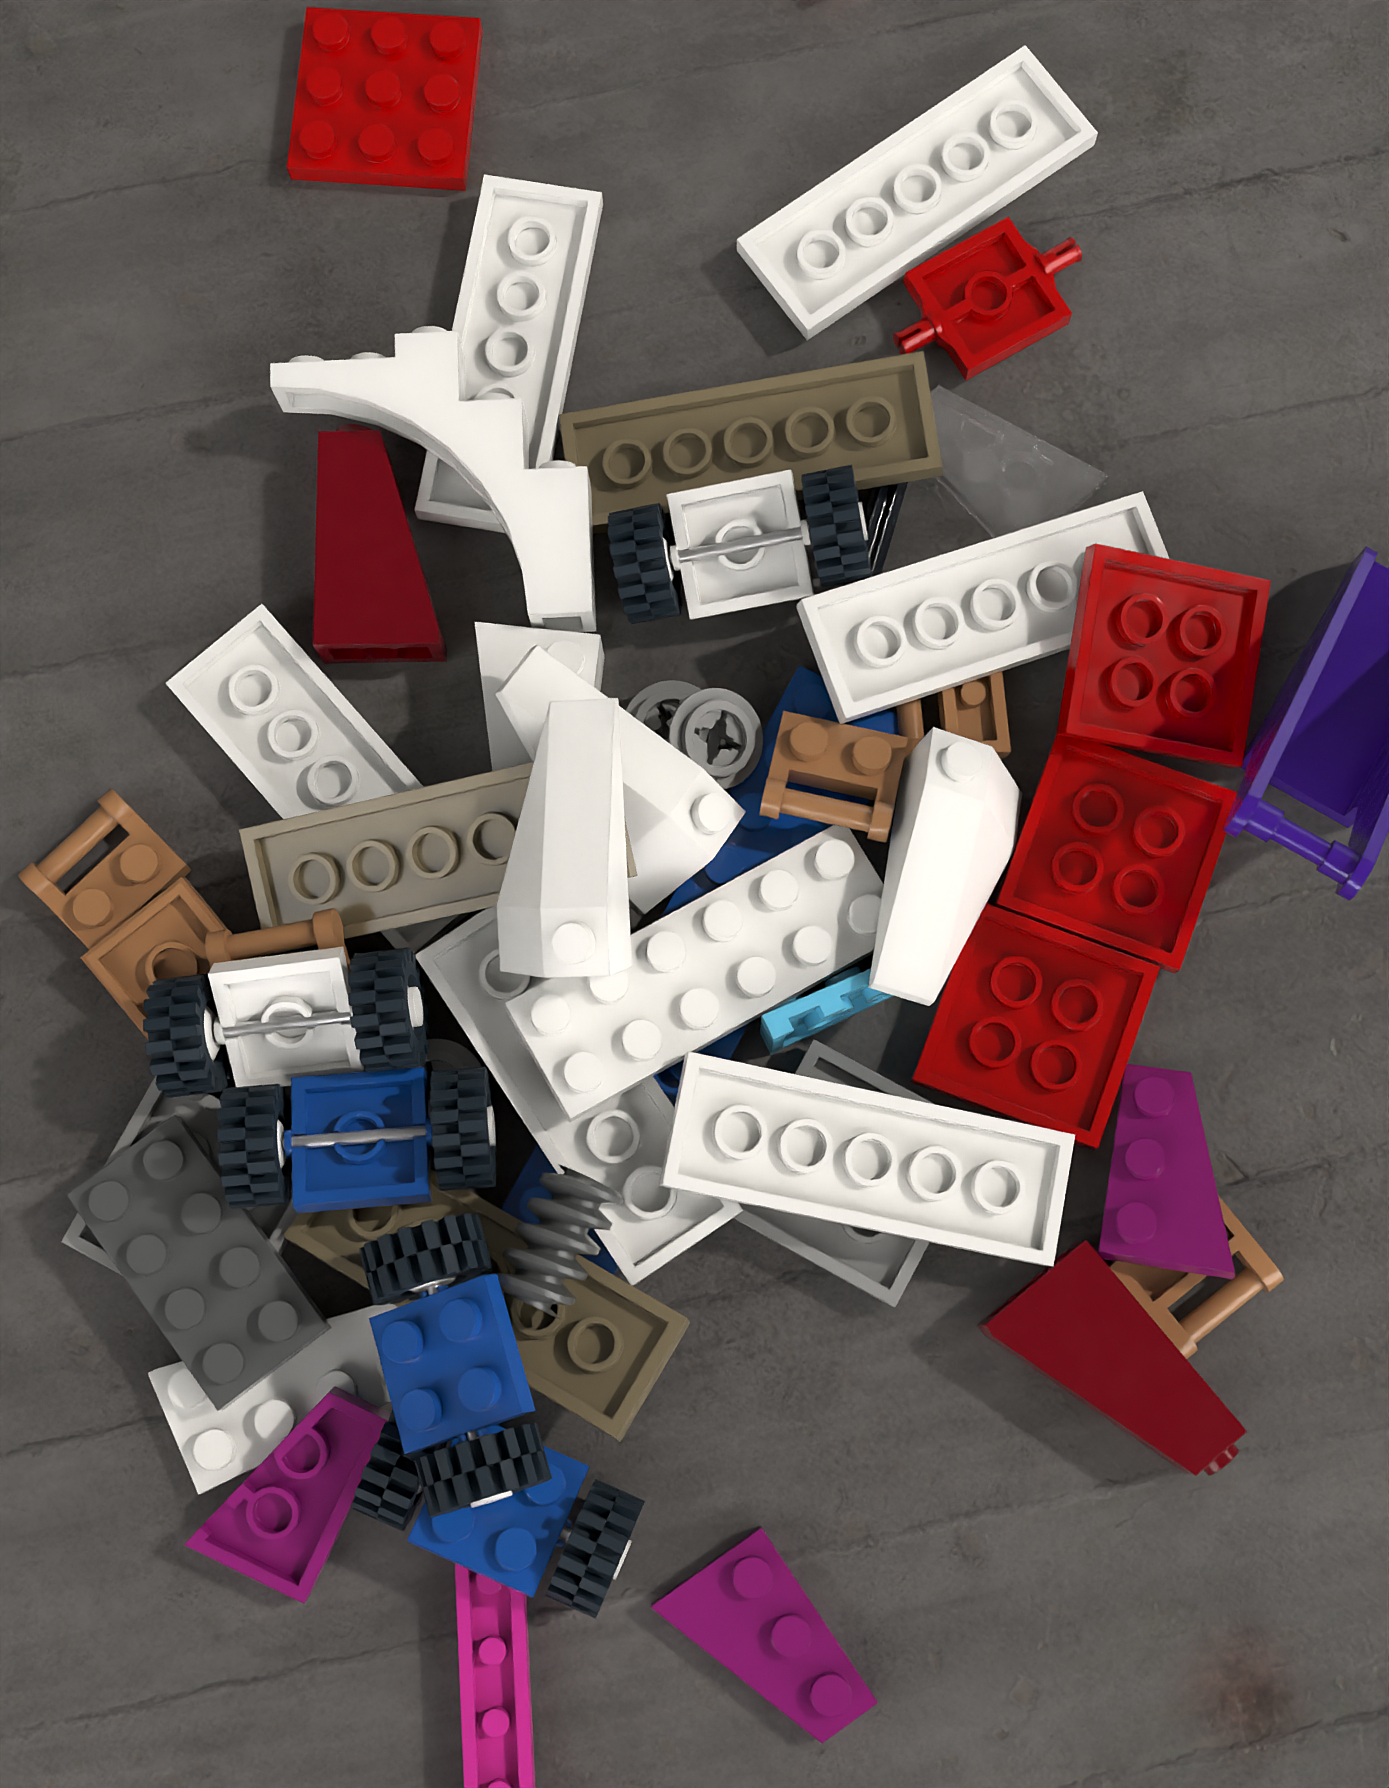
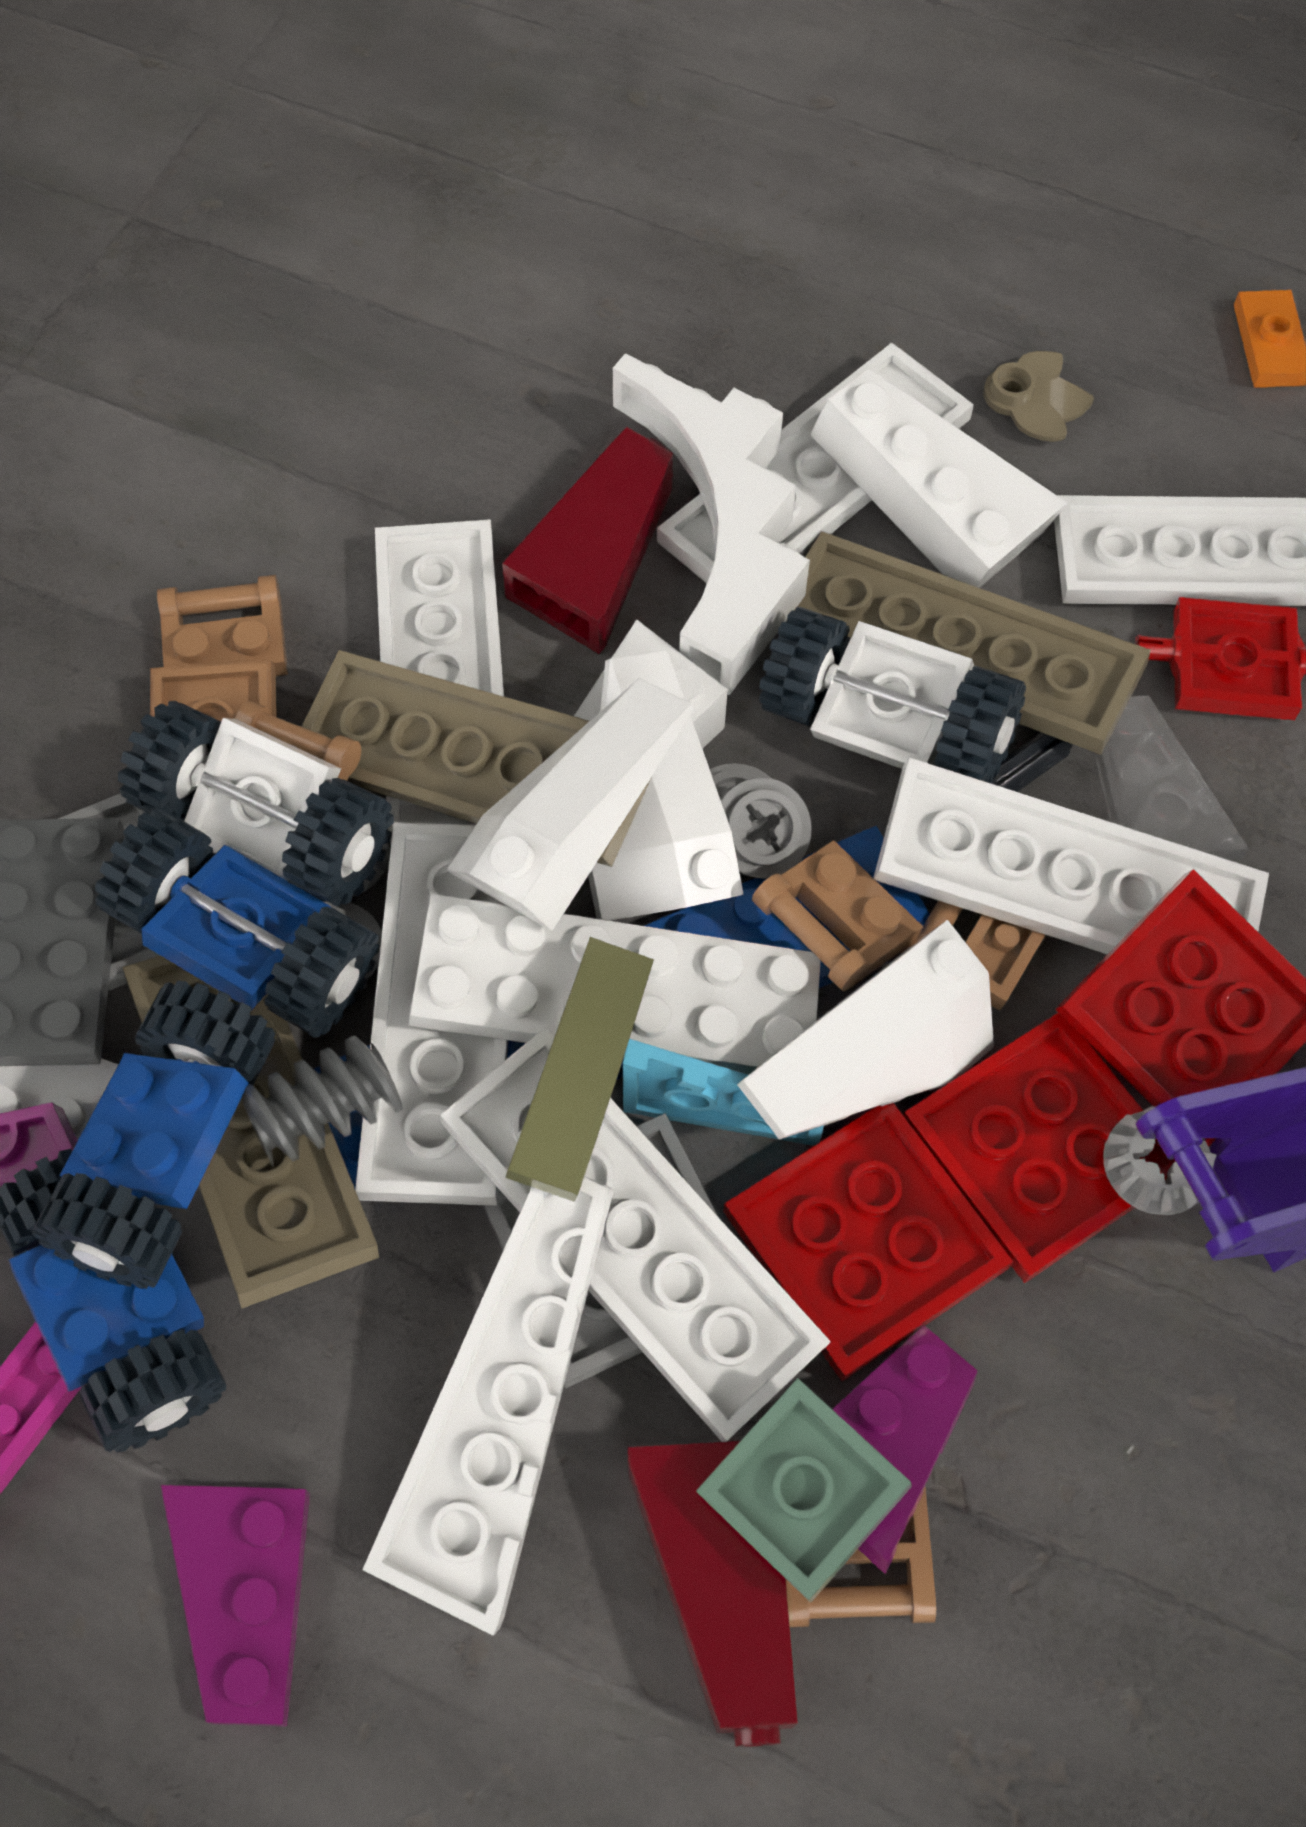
camera: 30 degrees right, 15 degrees down
(385, 99) = (858, 262): red plate -> none
(629, 303) = (934, 480): none -> white wedge
(651, 134) = (1036, 395): none -> dark tan plate
(750, 1069) = (580, 1070): none -> olive slope
(880, 1412) = (481, 1456): none -> white wing
(1142, 1267) = (804, 1489): none -> sand green plate
(1187, 803) = (1140, 1180): none -> light grey gear

